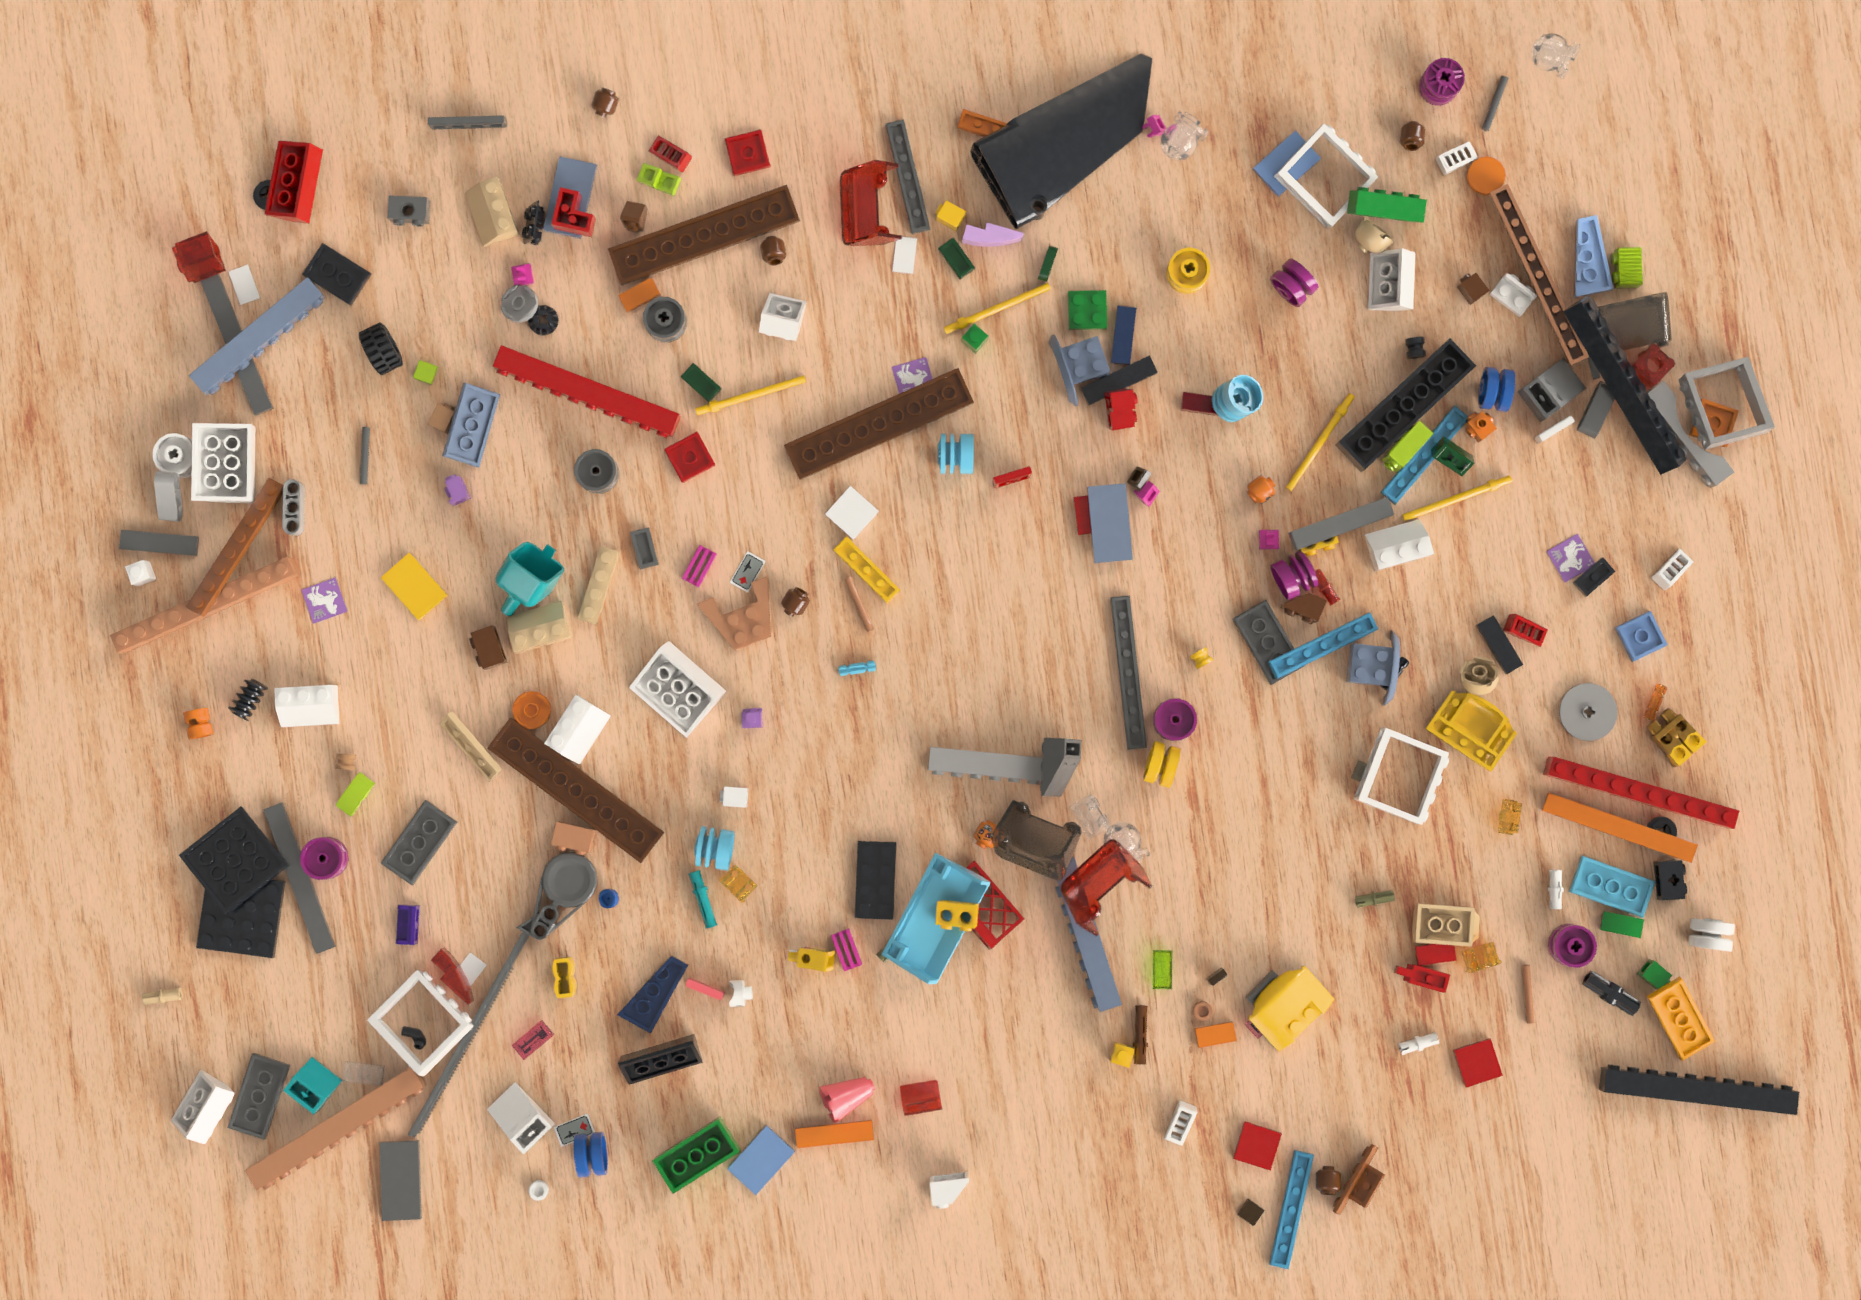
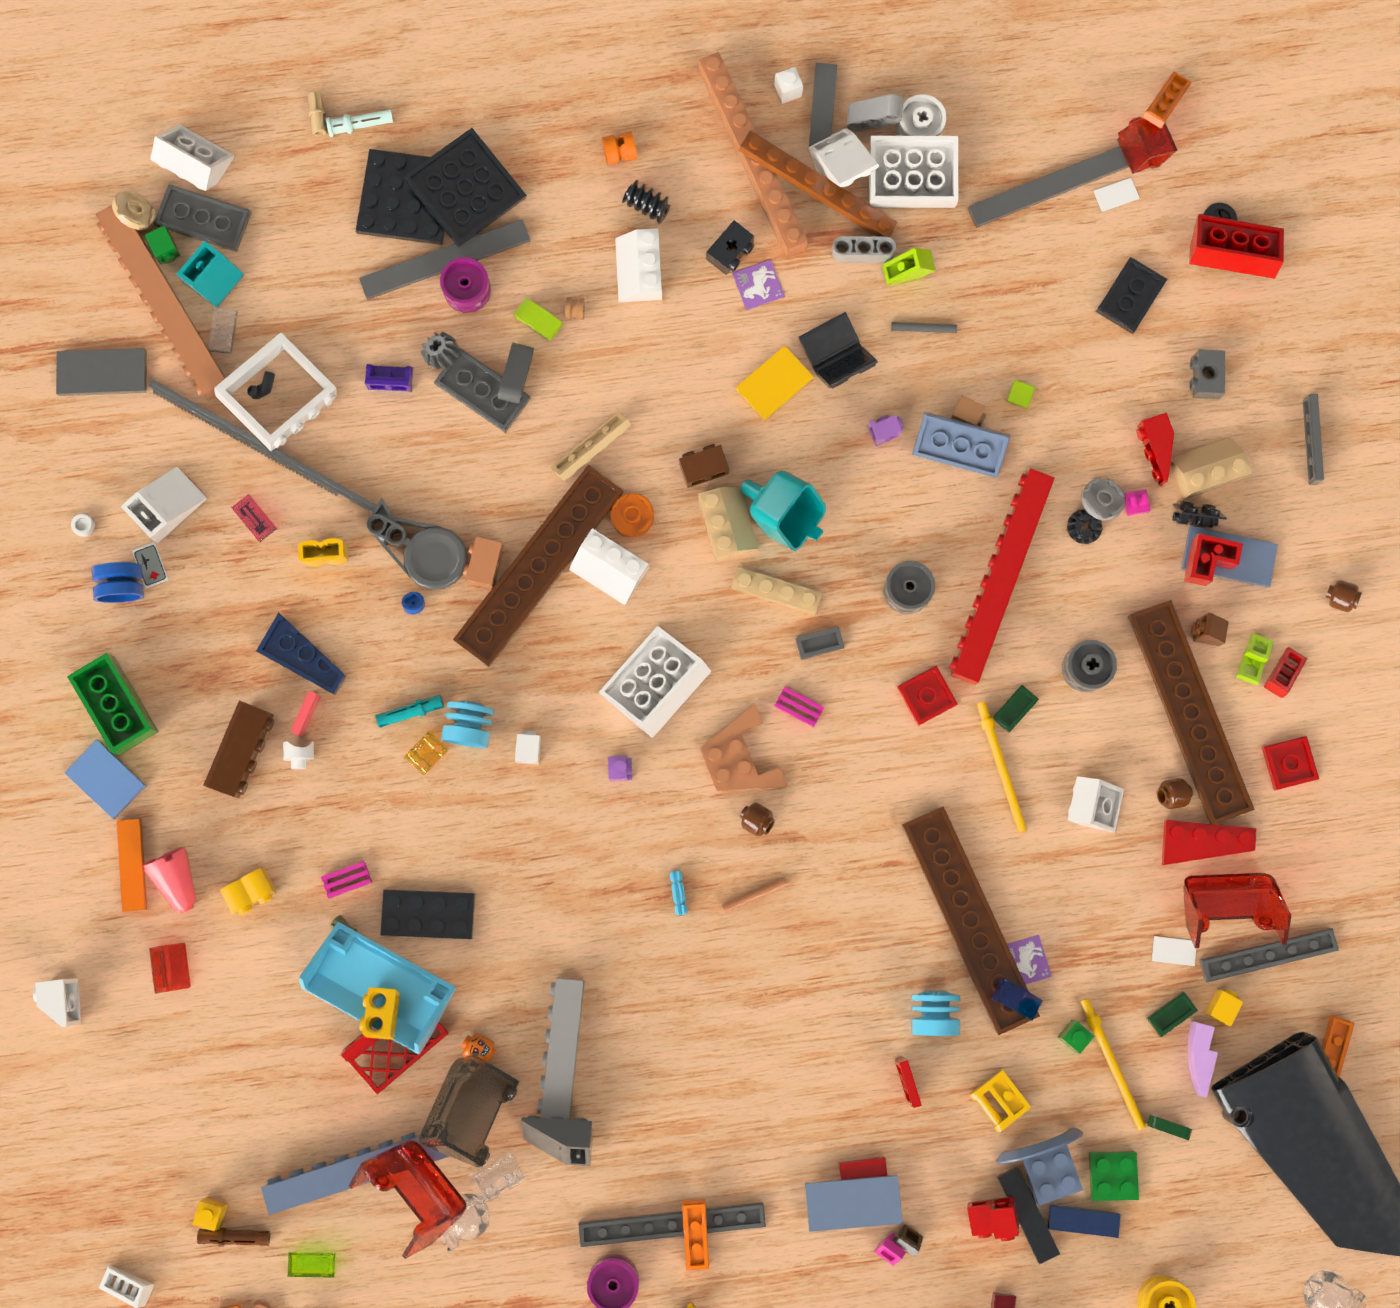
camera: 90 degrees right, 5 degrees down
(159, 238) = (1167, 99): none -> orange tile
(175, 967) = (385, 117): none -> light aqua pin
(211, 525) = (842, 158): none -> white slope
(252, 1157) = (133, 210): none -> tan tile
(257, 336) = (1057, 207): sand blue brick -> none
(280, 621) = (733, 236): none -> black brick
(285, 1129) = (162, 245): none -> green brick
(309, 468) = (909, 266): none -> lime slope
(380, 348) = (1047, 342): black tyre -> none
(384, 879) = (440, 350): none -> dark grey gear
(387, 532) = (836, 351): none -> black piece
(404, 812) = (515, 373): none -> dark grey beam
(454, 975) = (329, 429): clear red slope -> none
(467, 255) = (1158, 443): none -> red slope
(472, 967) = (333, 444): white sticker -> none
(639, 295) = (1117, 636): orange tile -> none
(660, 1059) = (226, 661): black slope -> none
(736, 1043) = (239, 750): none -> reddish brown slope
(747, 571) = (793, 763): sticker -> none
(813, 232) = (1200, 841): none -> red wing
(819, 958) = (335, 849): yellow torso -> none
(852, 512) = (863, 887): white tile -> none
(856, 1032) = (248, 891): none -> yellow brick
(866, 569) = (795, 904): yellow tile -> none
(944, 386) = (1017, 999): none -> clear blue slope
(1022, 397) = (1006, 1095): none -> yellow plate
(1135, 652) = (695, 1234): none -> orange tile
(1156, 125) = (1344, 1265): dark pink tile -> none
(1158, 763) = (558, 1267): yellow wheel -> none

